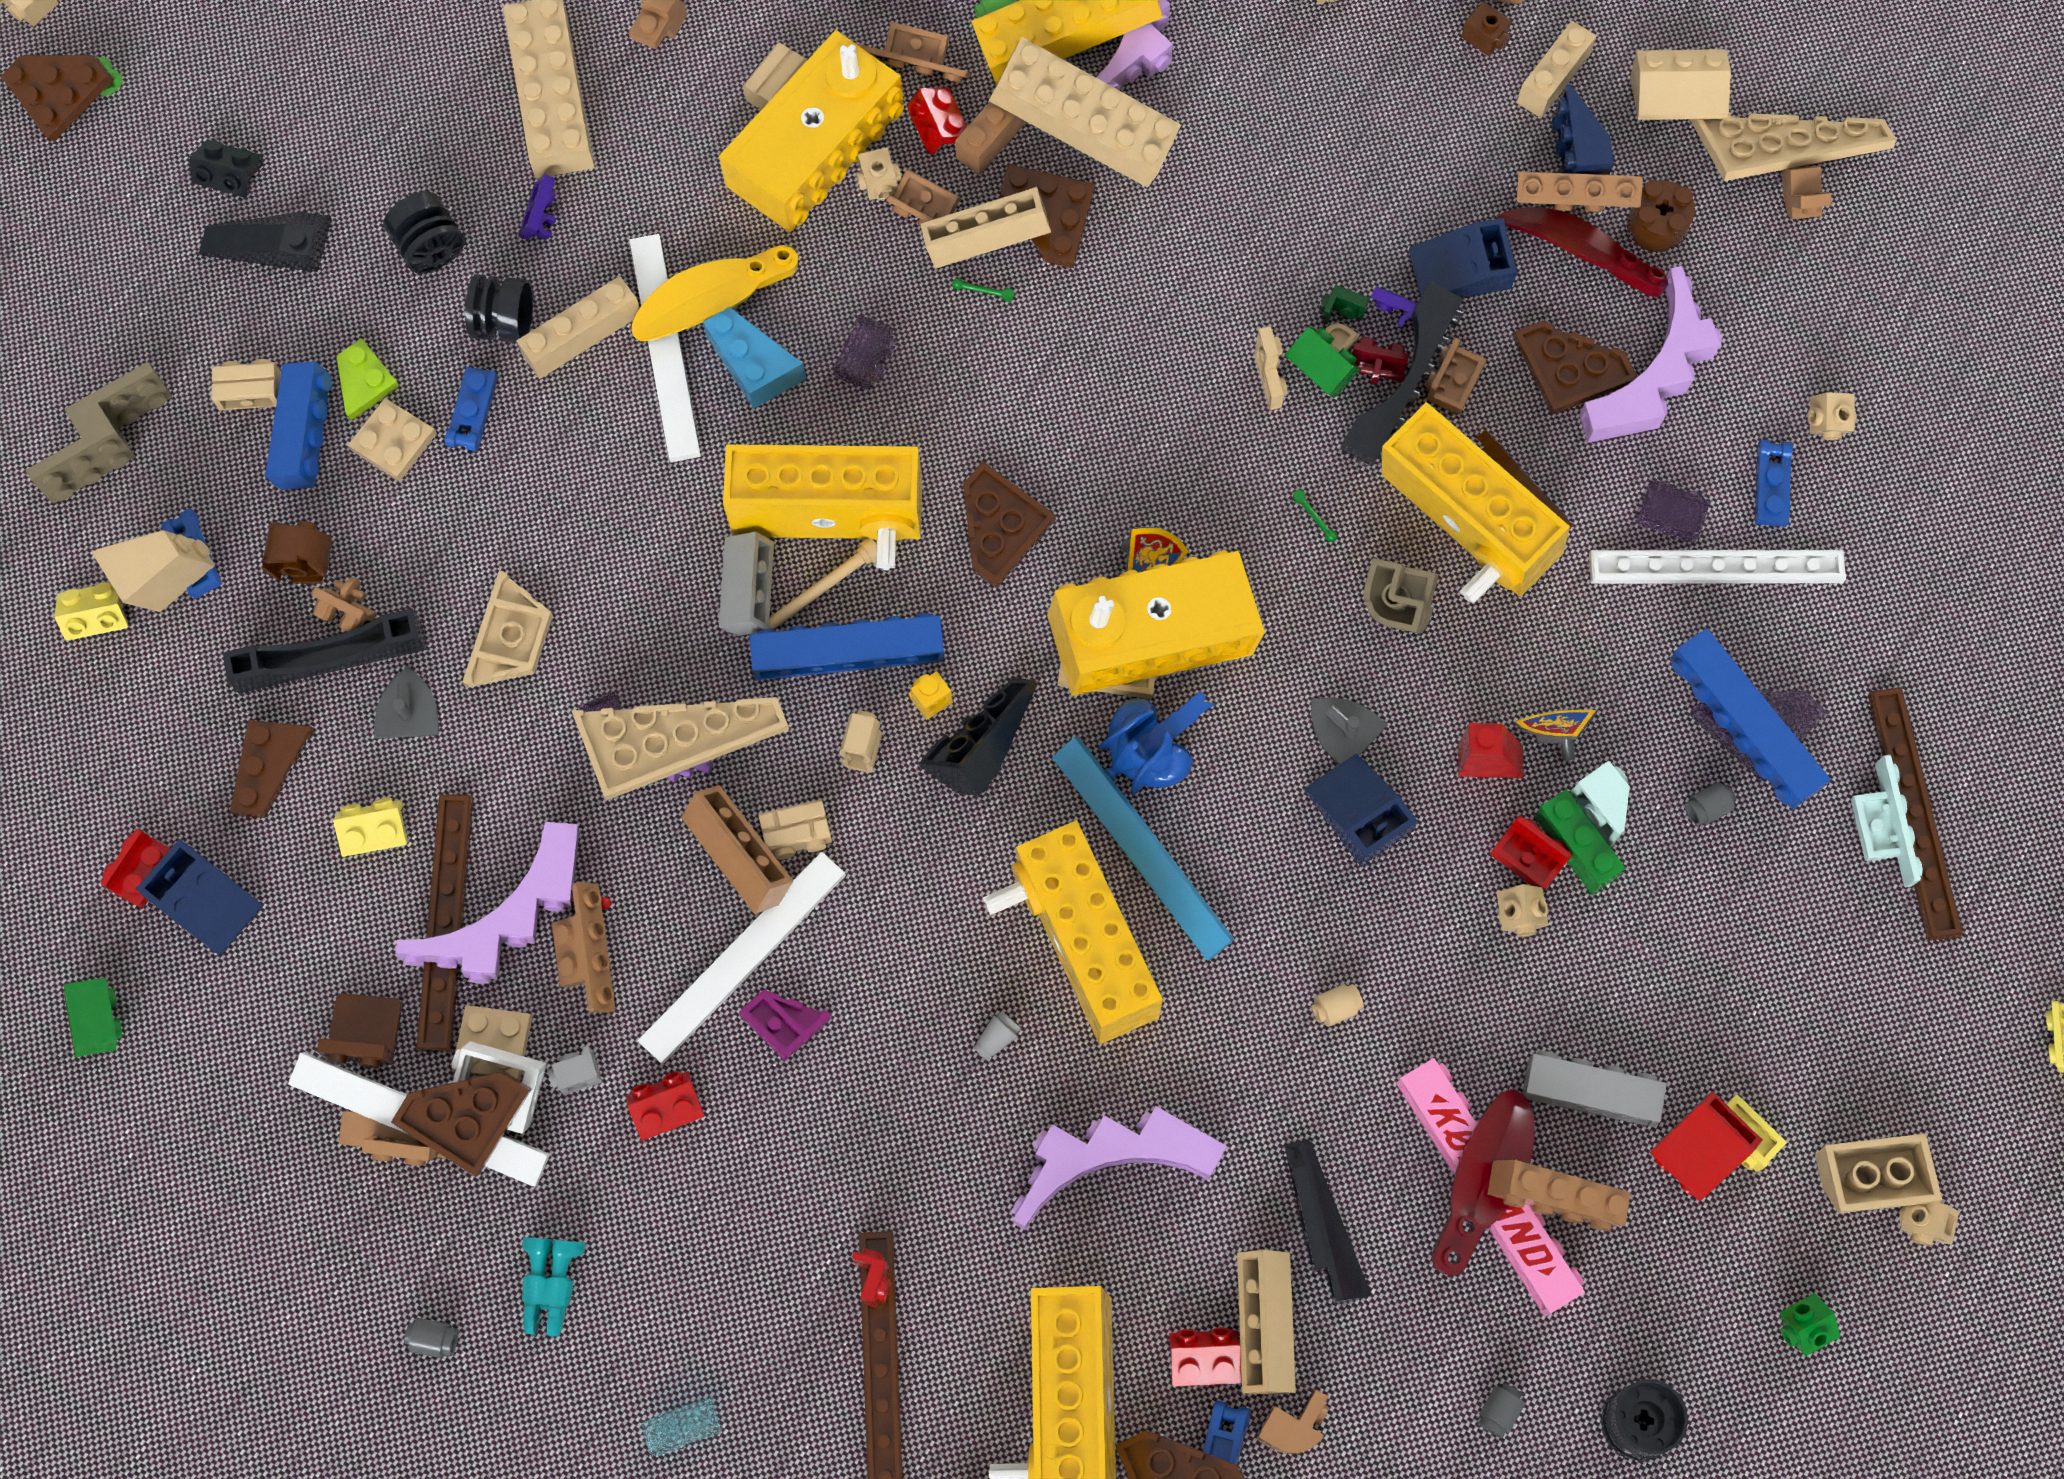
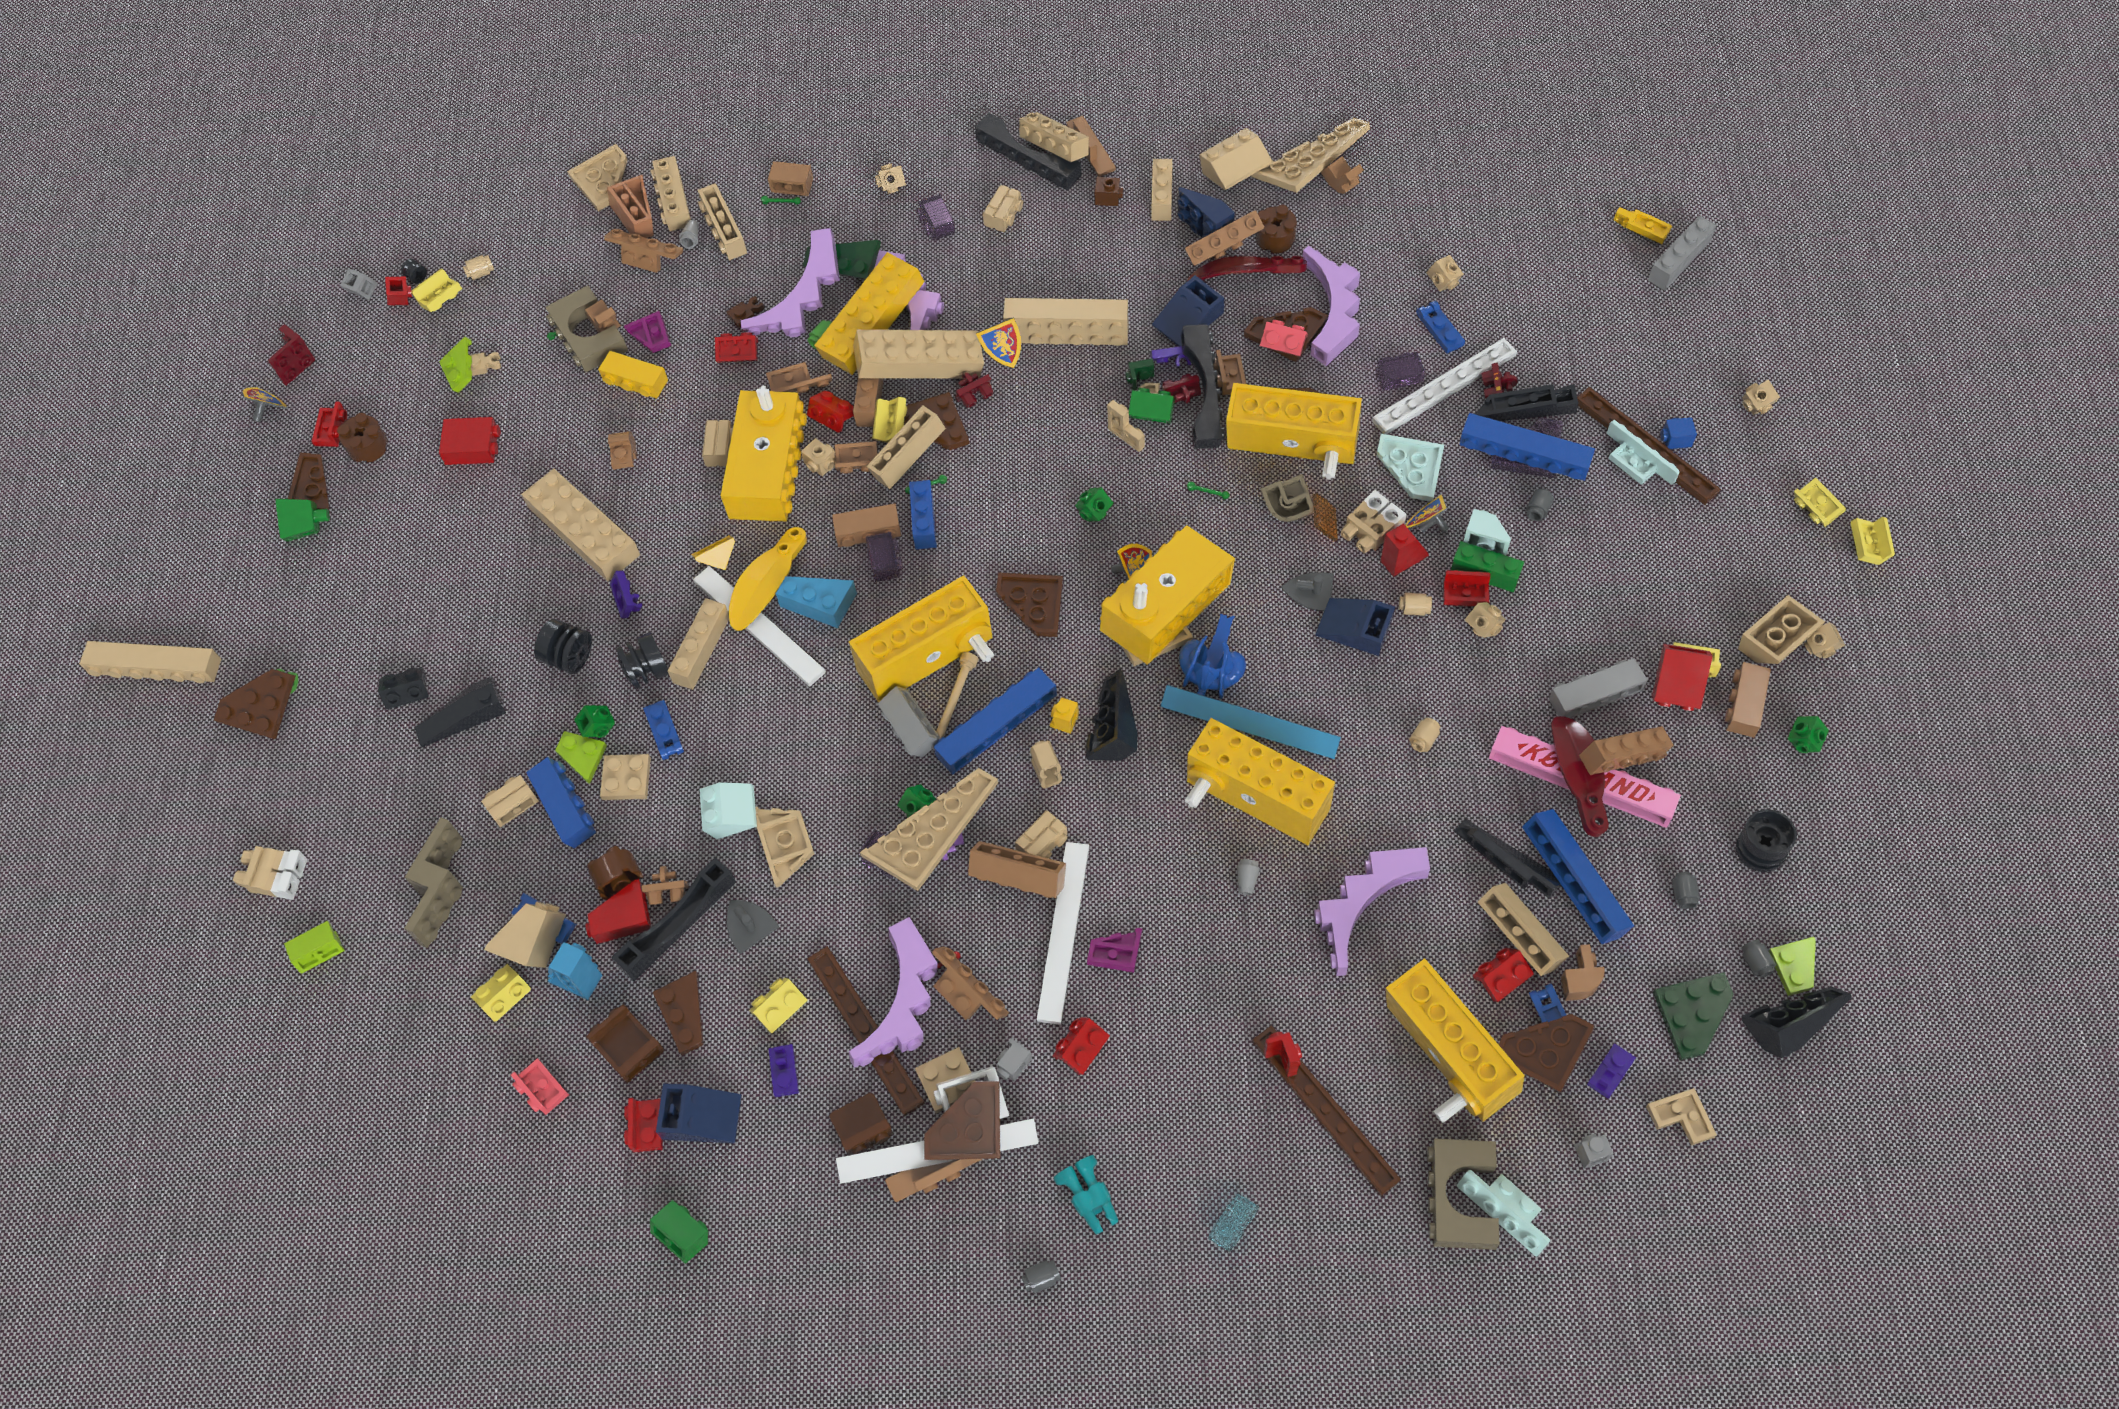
camera: 30 degrees left, 10 degrees down
(58, 749) = (540, 1087): none -> coral bracket
(175, 641) = (574, 970): none -> dark azure wedge
(181, 760) = (624, 1043): none -> reddish brown panel
(274, 605) = (620, 915): none -> red slope
(326, 908) = (783, 1070): none -> dark purple plate
(399, 349) = (594, 721): none -> green brick
(471, 556) = (727, 809): none -> light aqua slope
(677, 223) = (716, 553): none -> yellow slope
(685, 686) = (915, 799): none -> green brick
(873, 297) = (856, 525): none -> medium nougat brick
(947, 328) = (922, 514): none -> blue brick
(993, 175) = (888, 418): none -> light yellow bracket
(1111, 199) = (966, 393): none -> dark red hips
(1157, 447) = (1093, 504): none -> green brick
(1199, 159) = (1002, 342): none -> shield
(1299, 180) = (1069, 320): none -> tan brick
(1382, 1304) = (1577, 876): none -> blue brick
(1426, 646) = (1325, 517): none -> clear orange piece
(1453, 831) = (1415, 604): none -> tan brick
(1482, 691) = (1372, 521): none -> tan hips
(1554, 374) = (1284, 338): none -> coral bracket
(1592, 645) = (1412, 464): none -> light aqua plate
(1771, 1228) = (1747, 699): none -> medium nougat brick
(1789, 611) = (1495, 377): none -> dark red hips
(1800, 661) = (1530, 403): none -> black wedge
(1966, 824) = (1678, 433): none -> blue brick

